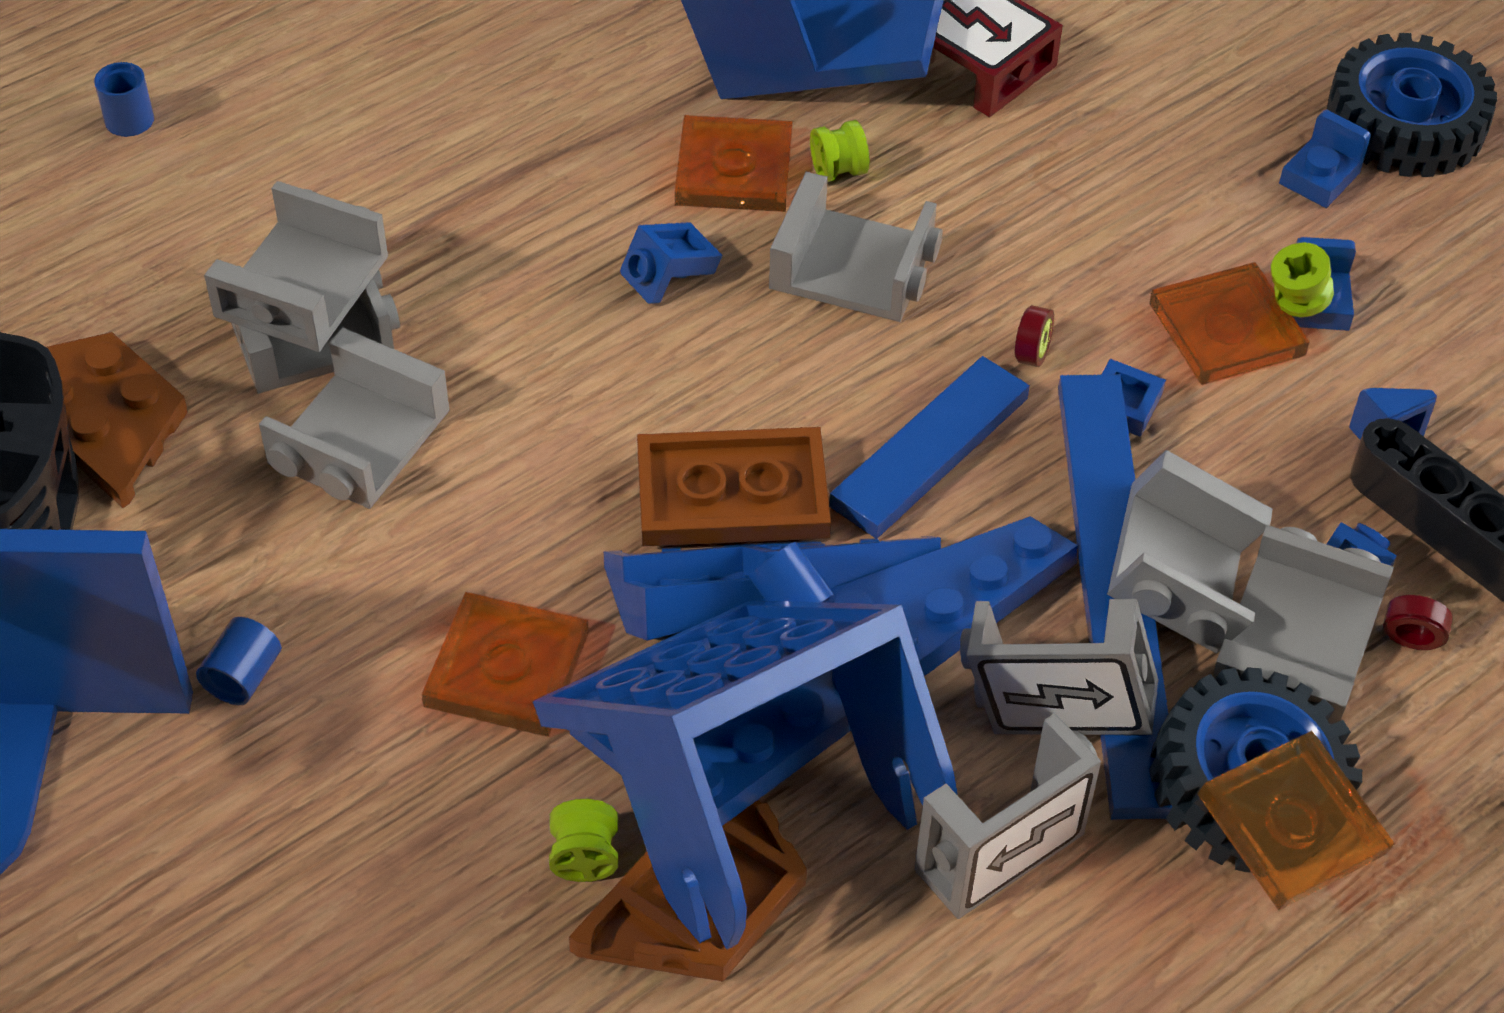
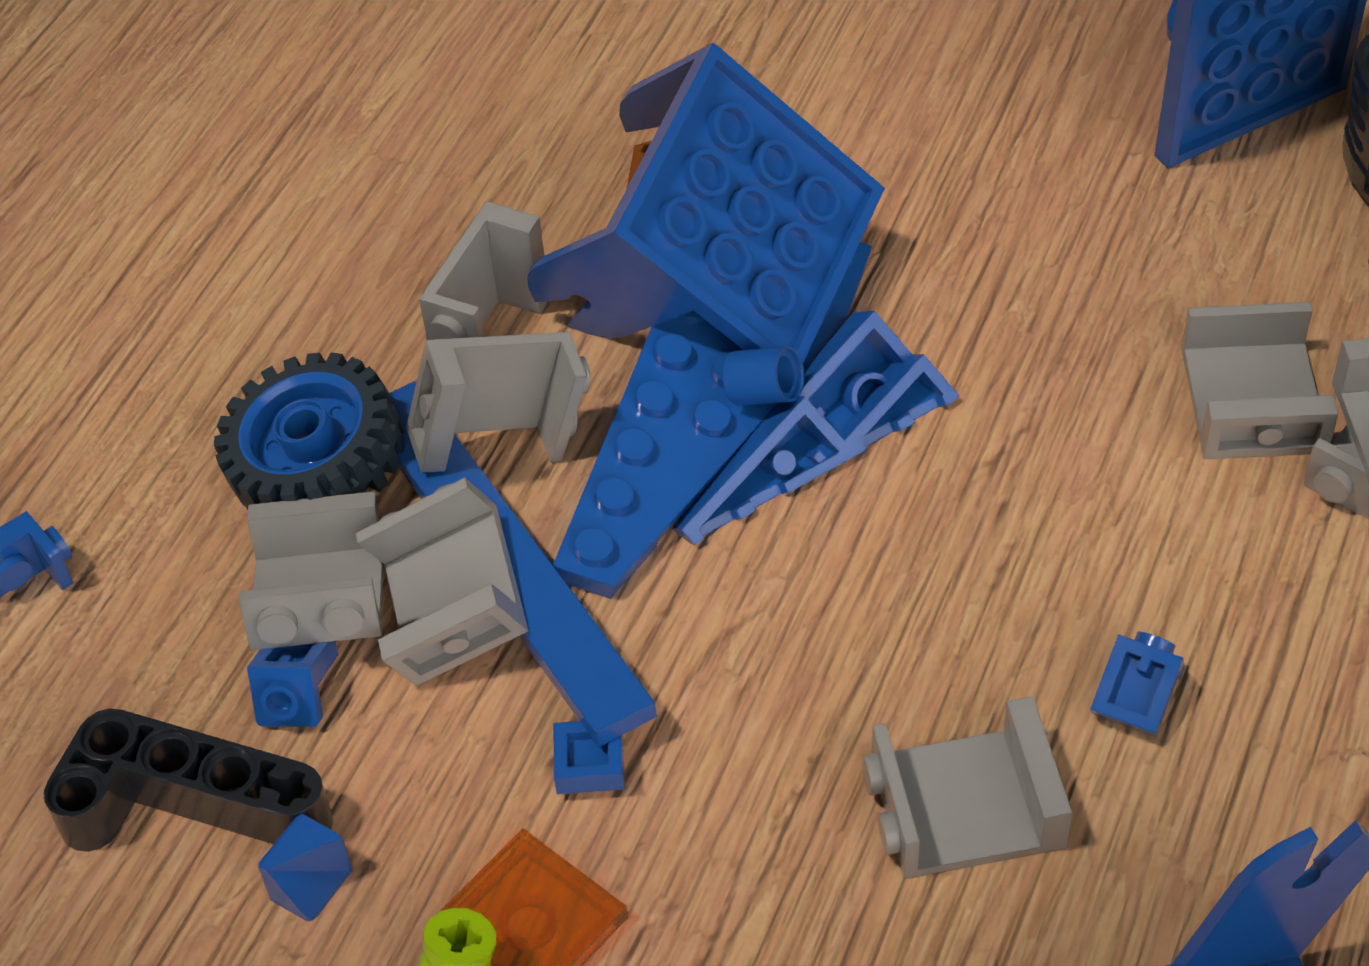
camera: 155 degrees right, 0 degrees up
(238, 661) = (1145, 174): blue beam -> none
(503, 660) = (958, 280): clear orange tile -> none
(732, 486) = (892, 486): dark orange plate -> none
(733, 163) = (1174, 855): clear orange tile -> none
(840, 150) = (1075, 908): lime wheel -> none
(928, 447) = (747, 628): blue tile -> none
(1034, 335) = (716, 774): dark red tile -> none
(1295, 819) = (256, 379): clear orange tile -> none
(1417, 622) = (212, 649): dark red tile -> none

